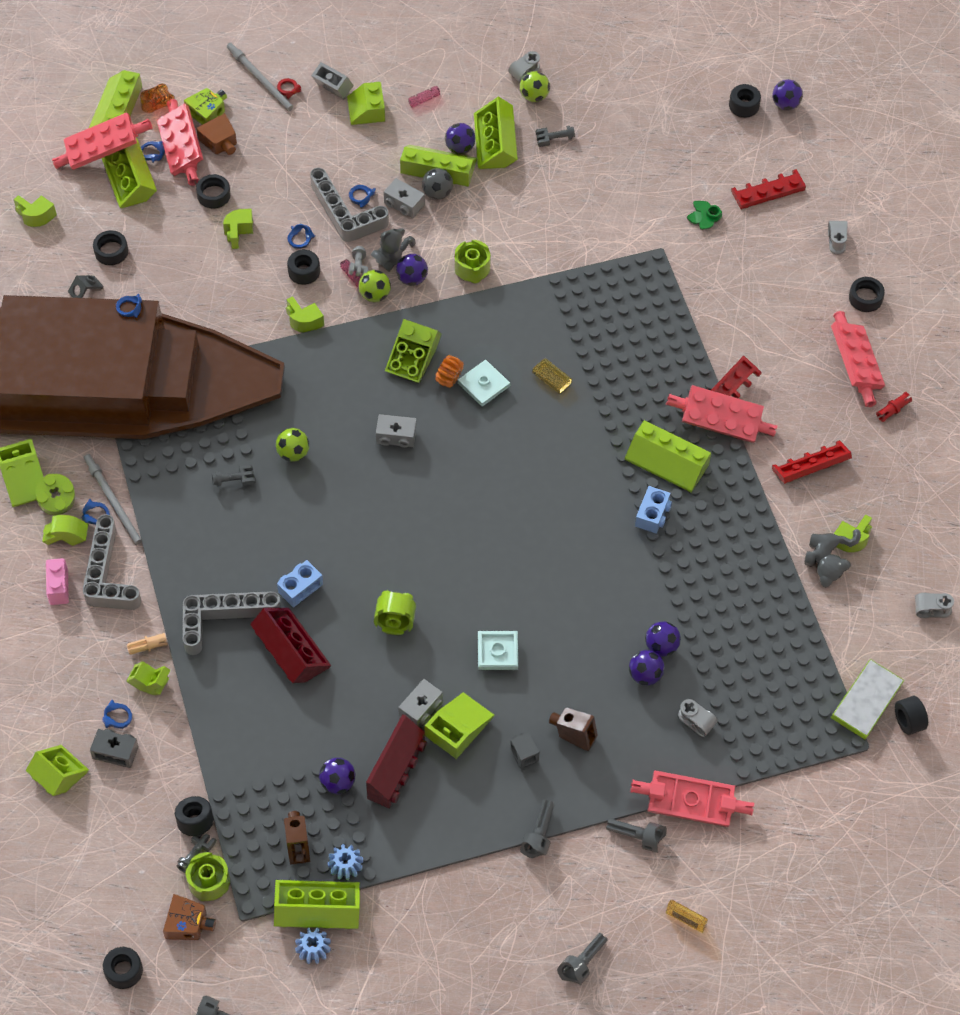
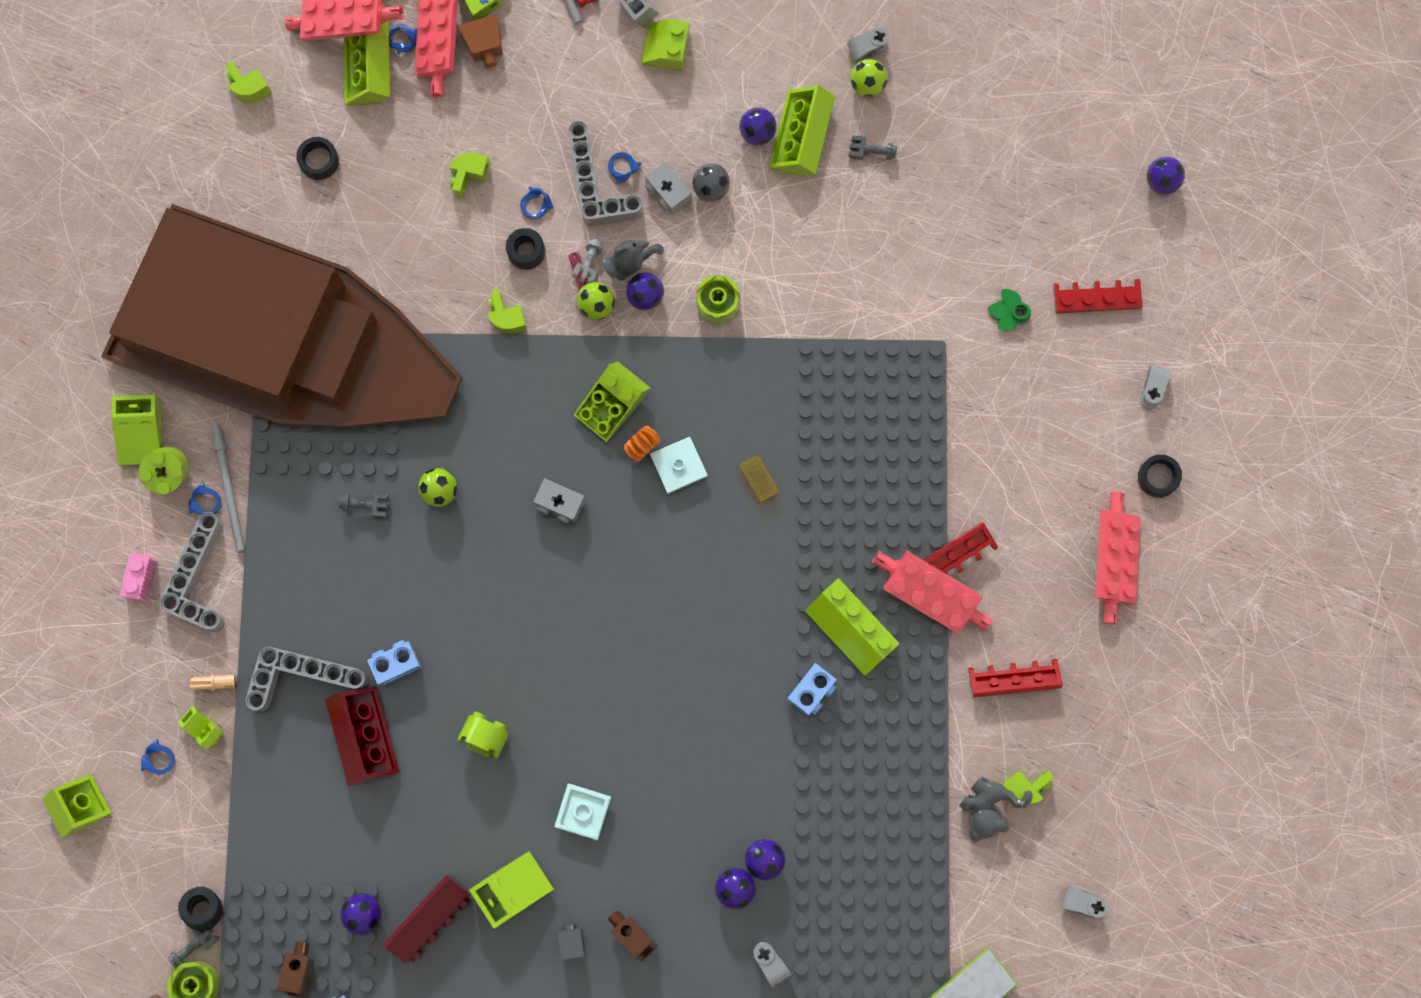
camera: 20 degrees right, 20 degrees up
(65, 528) = (164, 517): lime brick -> none
(84, 282) = (275, 199): dark grey bracket -> none
(114, 748) = (130, 794): dark grey brick -> none
(134, 299) = (309, 260): blue piece -> none
(213, 180) = (450, 99): black tyre -> none
(419, 160) = (718, 145): lime slope -> none
(423, 694) = (465, 855): light grey brick -> none
(424, 96) = (737, 50): clear pink axle -> none
(742, 108) = (1116, 154): black tyre -> none
(894, 406) = (1135, 635): red pin -> none

